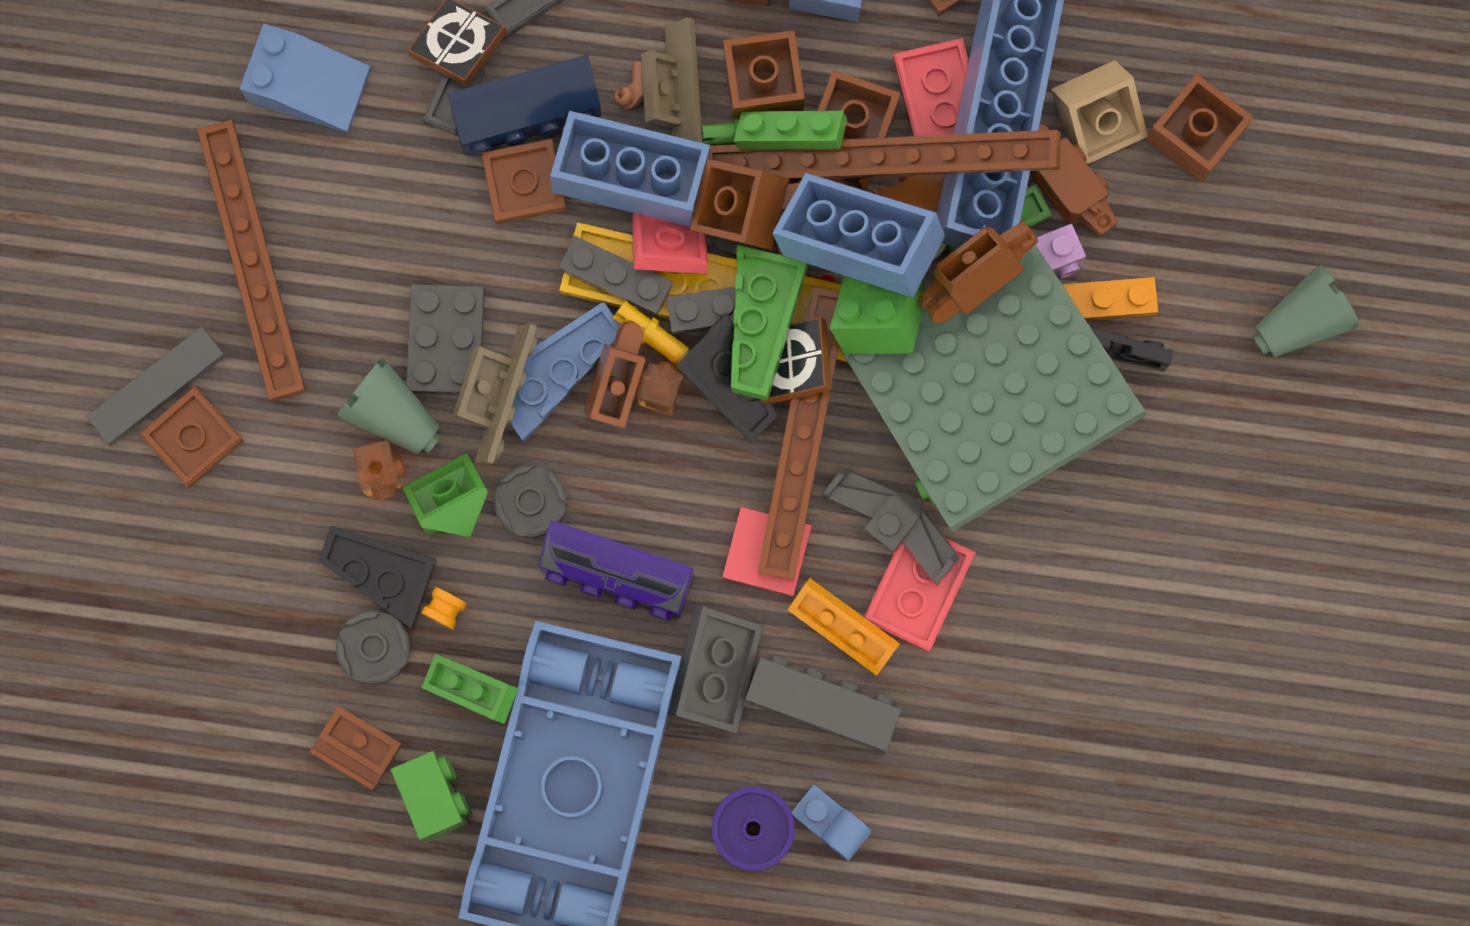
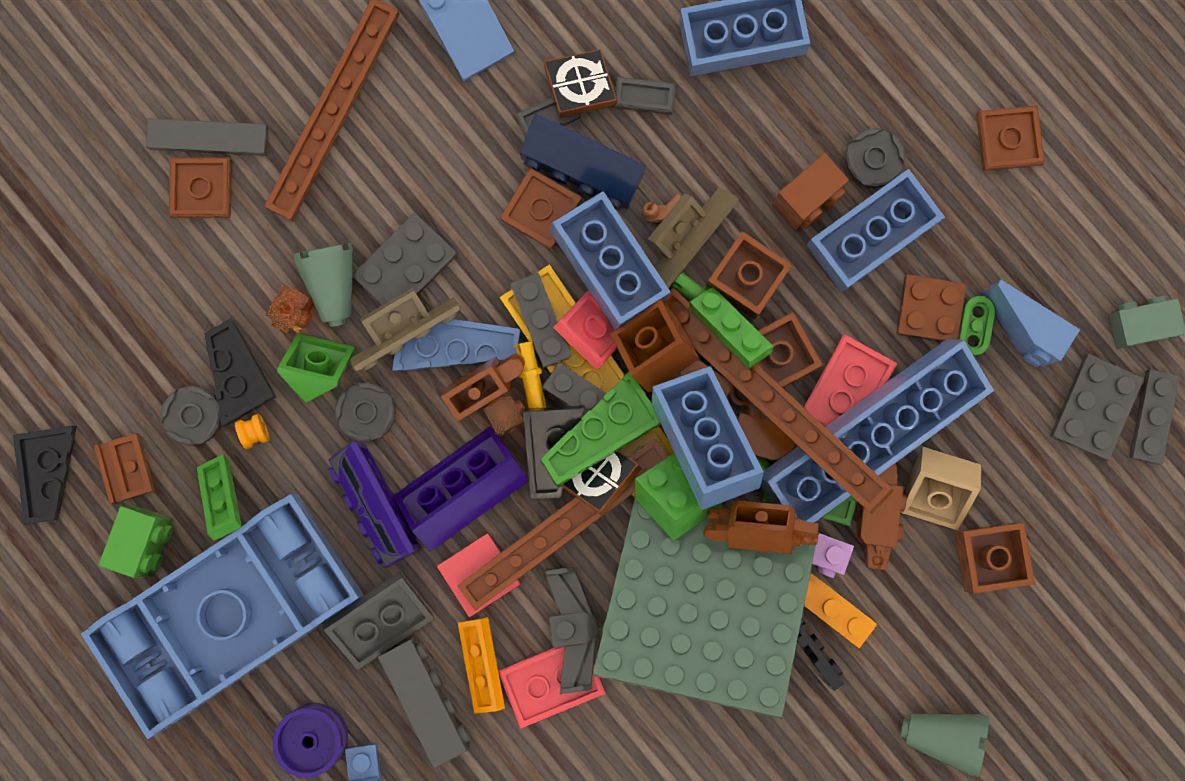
camera: 45 degrees right, 5 degrees up
(281, 819) = (42, 471): none -> black wing
(681, 486) = (460, 489): none -> dark purple slope

